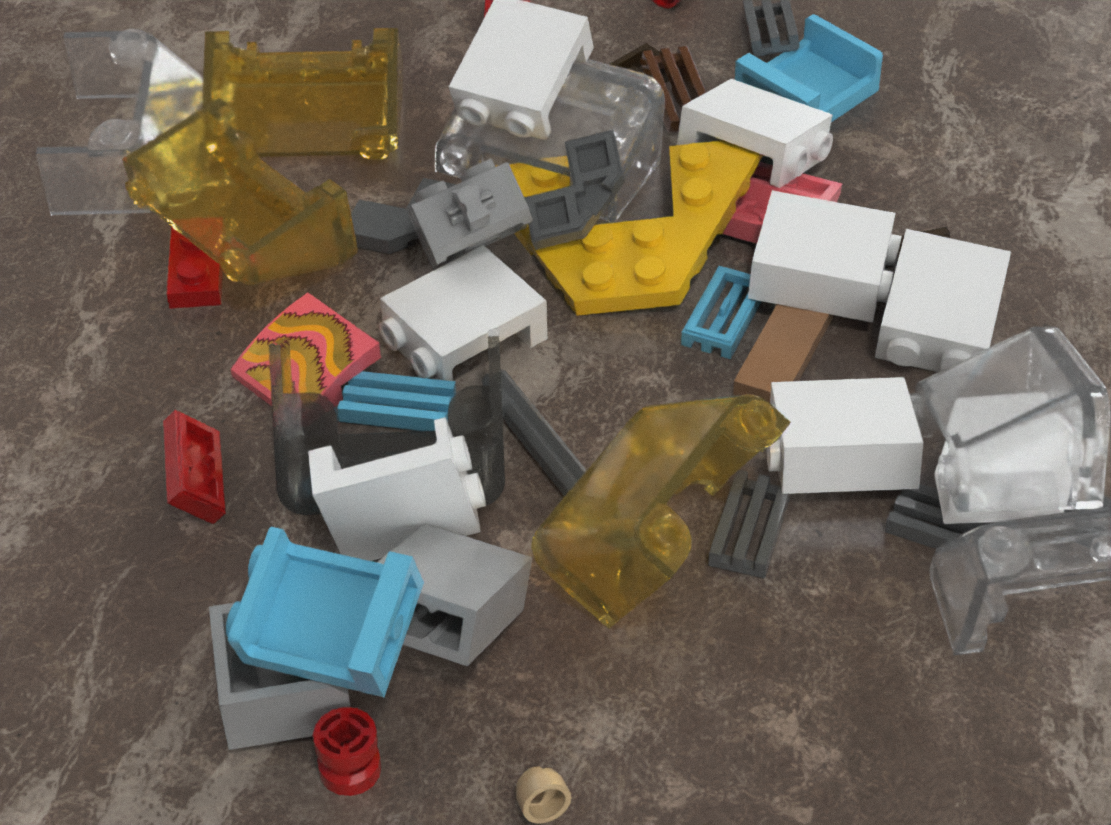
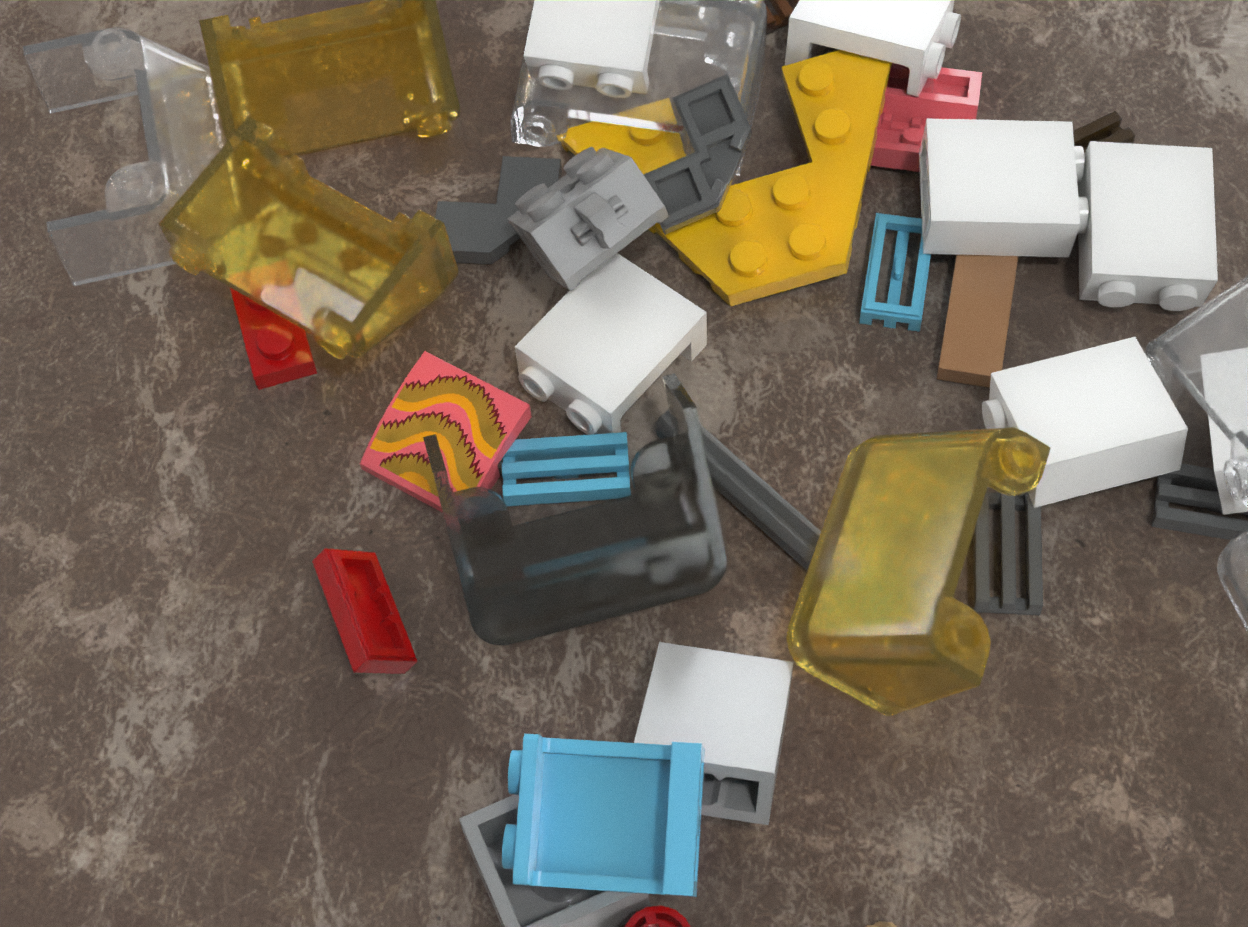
camera: 10 degrees left, 15 degrees up
(388, 499) = (626, 626): white panel -> none

